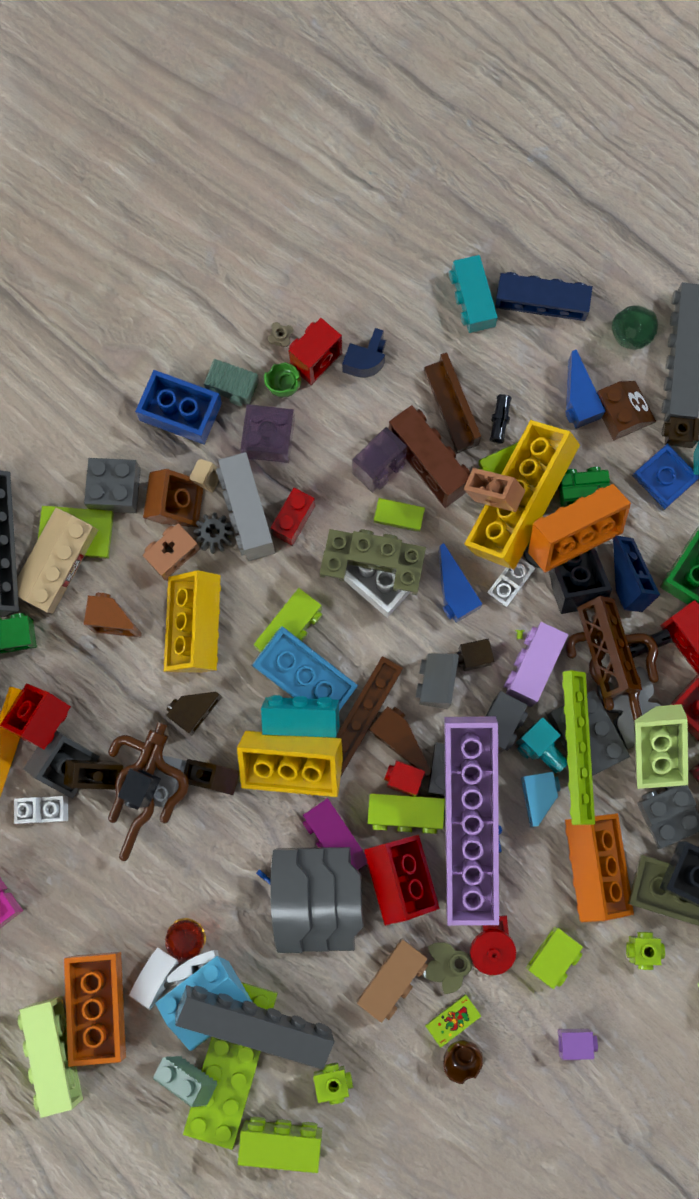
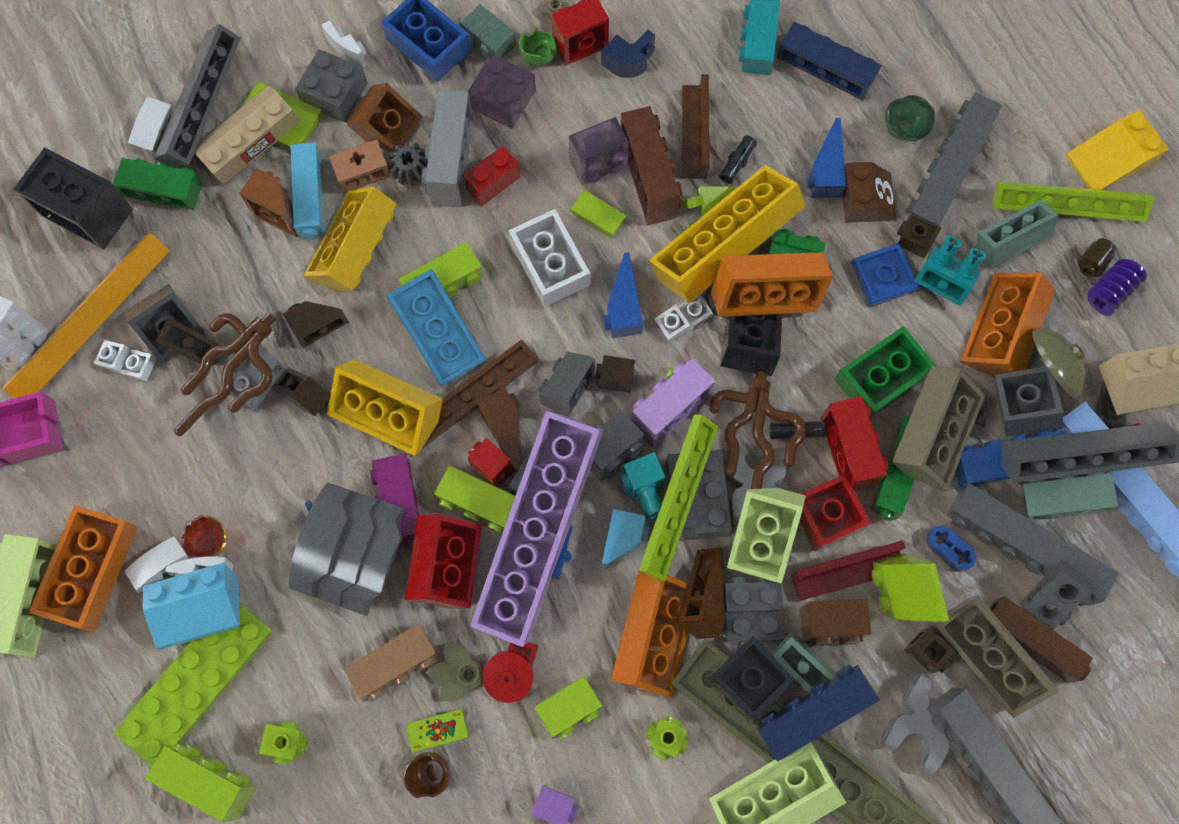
camera: 20 degrees right, 5 degrees down
(35, 716) = (158, 266): red brick -> none
(108, 443) = (344, 45): none -> white slope
(134, 593) = (307, 191): none -> medium azure brick
(138, 788) = (219, 365): black brick -> none
(185, 1081) = (137, 676): sand green brick -> none
(205, 475) = (422, 108): tan slope -> none
(254, 1026) = (228, 648): dark grey brick -> none
(300, 716) = (413, 364): teal brick -> none
(376, 553) = (552, 231): olive bracket -> none
(494, 489) = (698, 213): nougat brick -> none
(617, 647) = (760, 408): reddish brown fence -> none
(628, 818) = (705, 597): none -> reddish brown slope
(632, 577) = (809, 356): dark blue slope -> none

